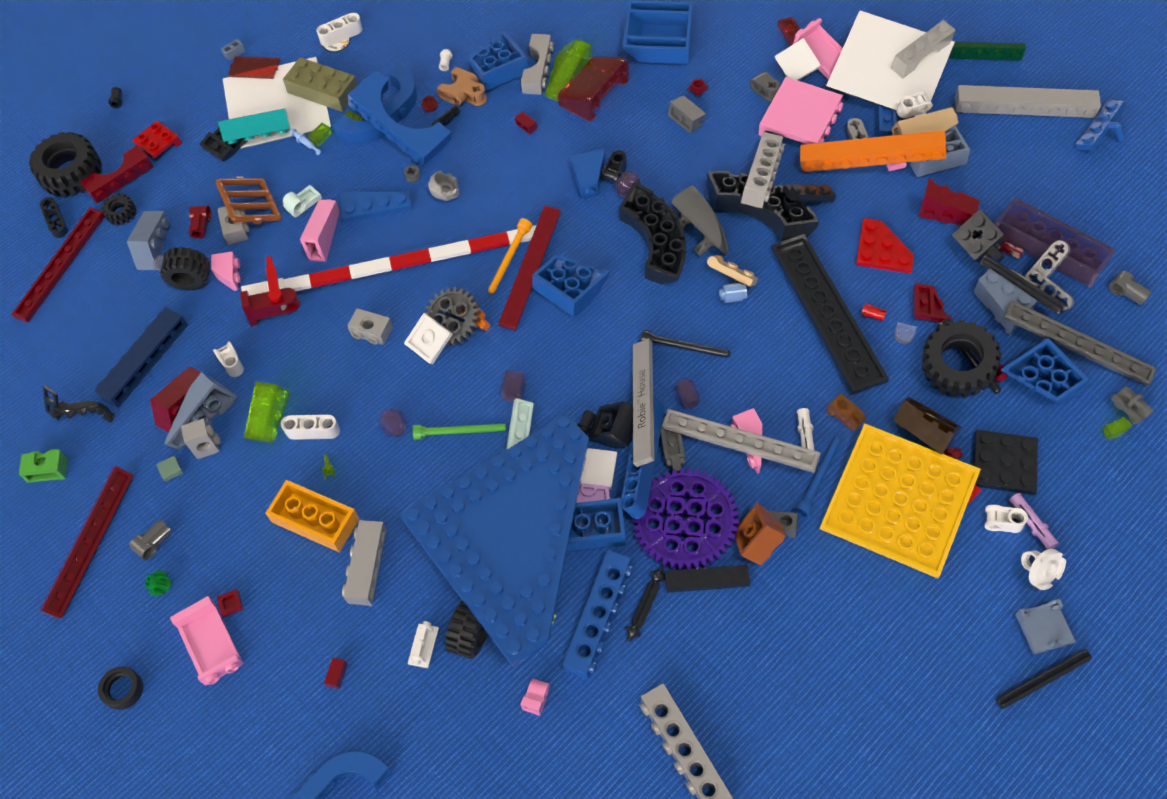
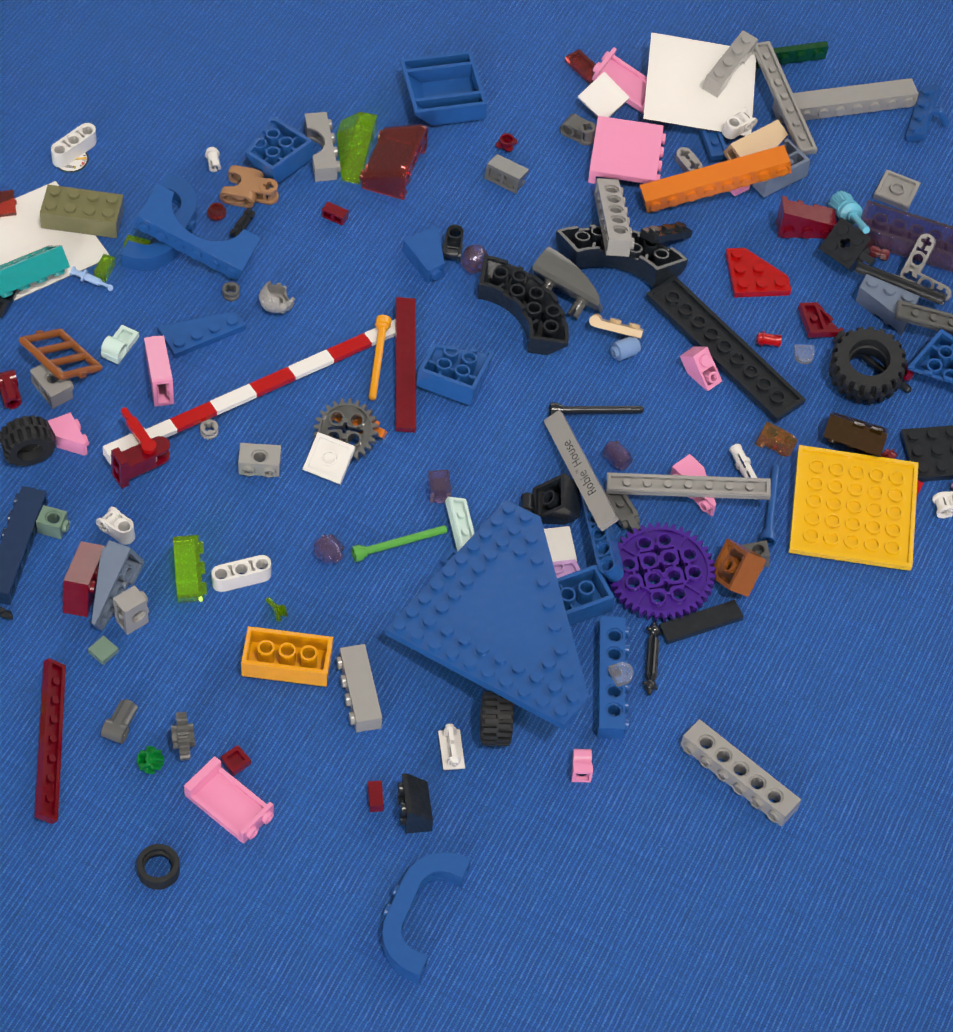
camera: 30 degrees left, 5 degrees down
(179, 343) = (47, 517): none -> sand green brick
(189, 569) = (183, 735): none -> dark grey gear
(337, 289) = (209, 434): none -> light grey bush
(362, 694) = (415, 804): none -> black slope
(604, 615) = (621, 673): none -> clear tile
(798, 326) = (701, 367): none -> bright pink slope
(966, 89) = (784, 98): none -> light grey tile
(992, 203) = (848, 210): none -> medium azure piece
(1050, 193) = (896, 190): none -> light grey tile

